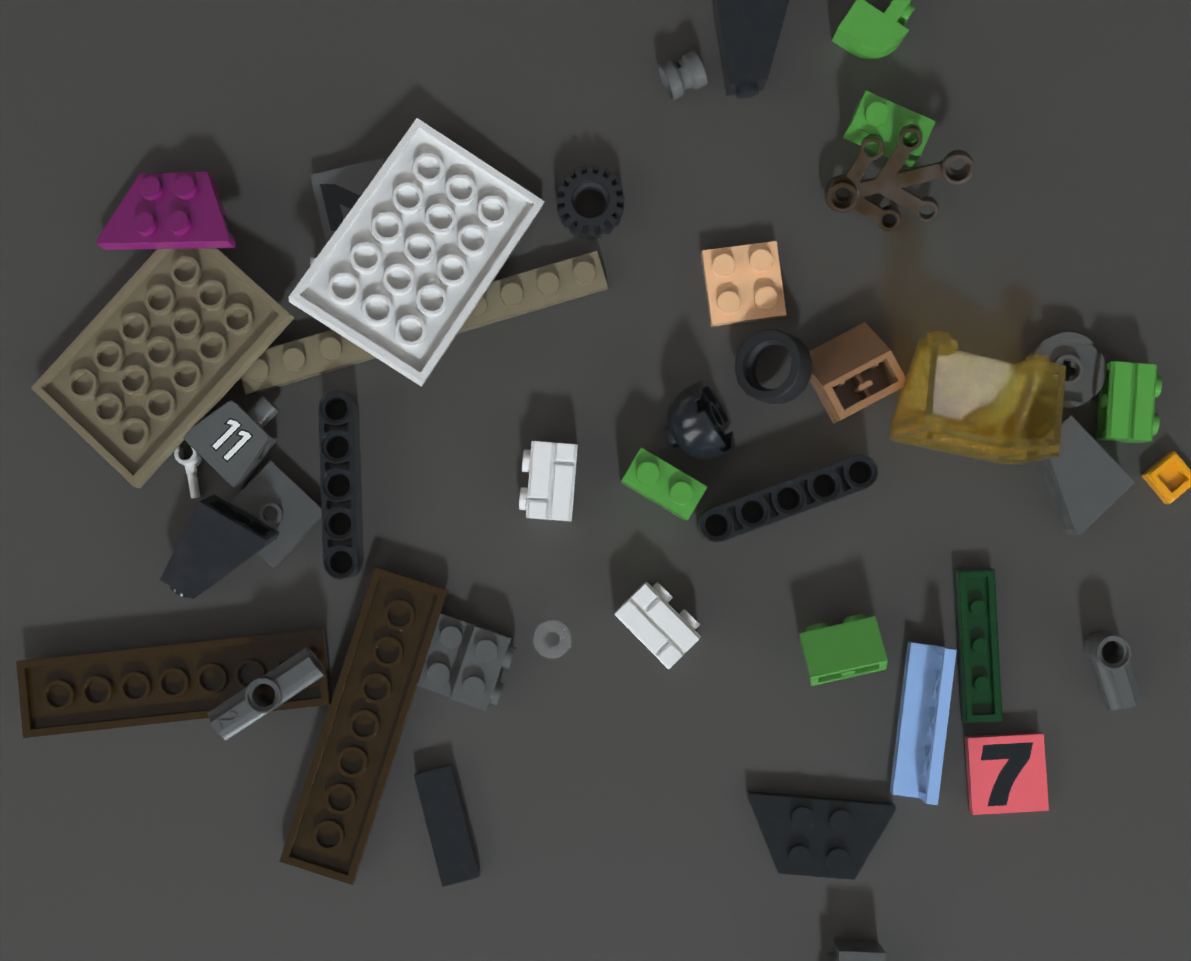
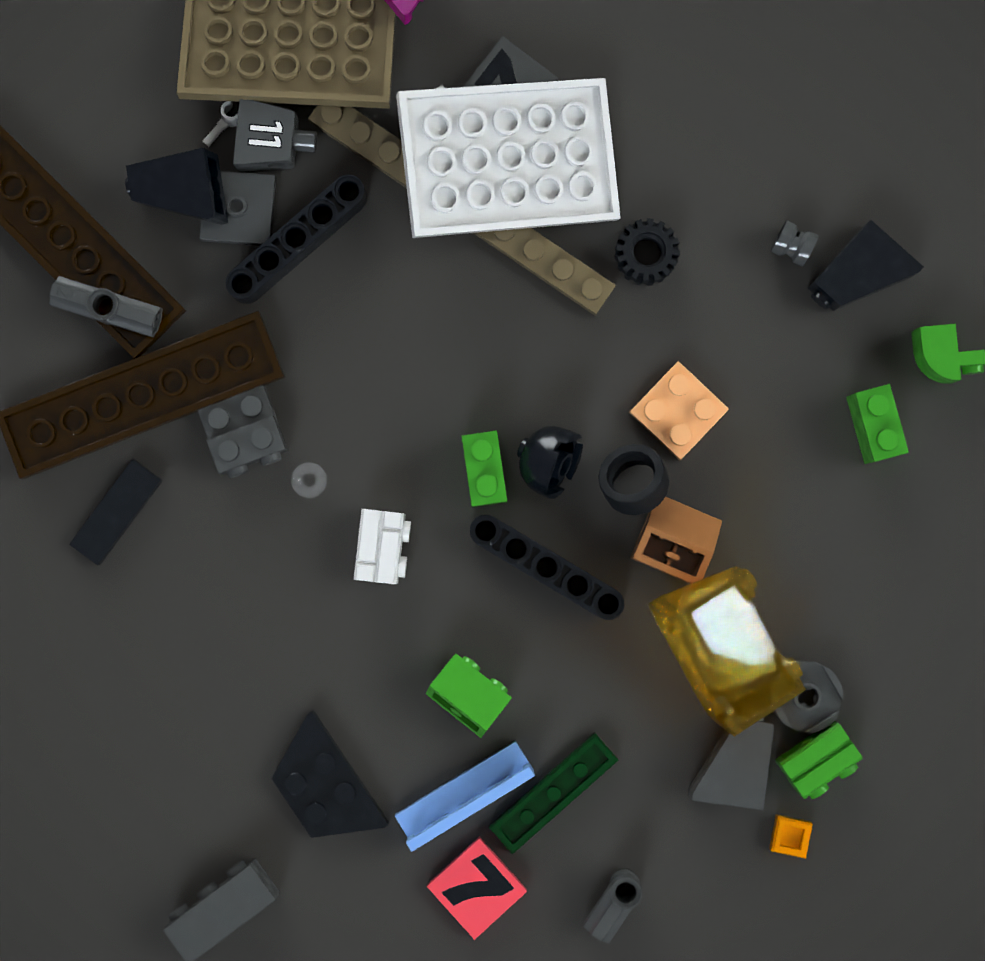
camera: 60 degrees right, 0 degrees up
(550, 481) = (420, 386): white brick -> none
(891, 181) = (838, 457): dark brown plant -> none

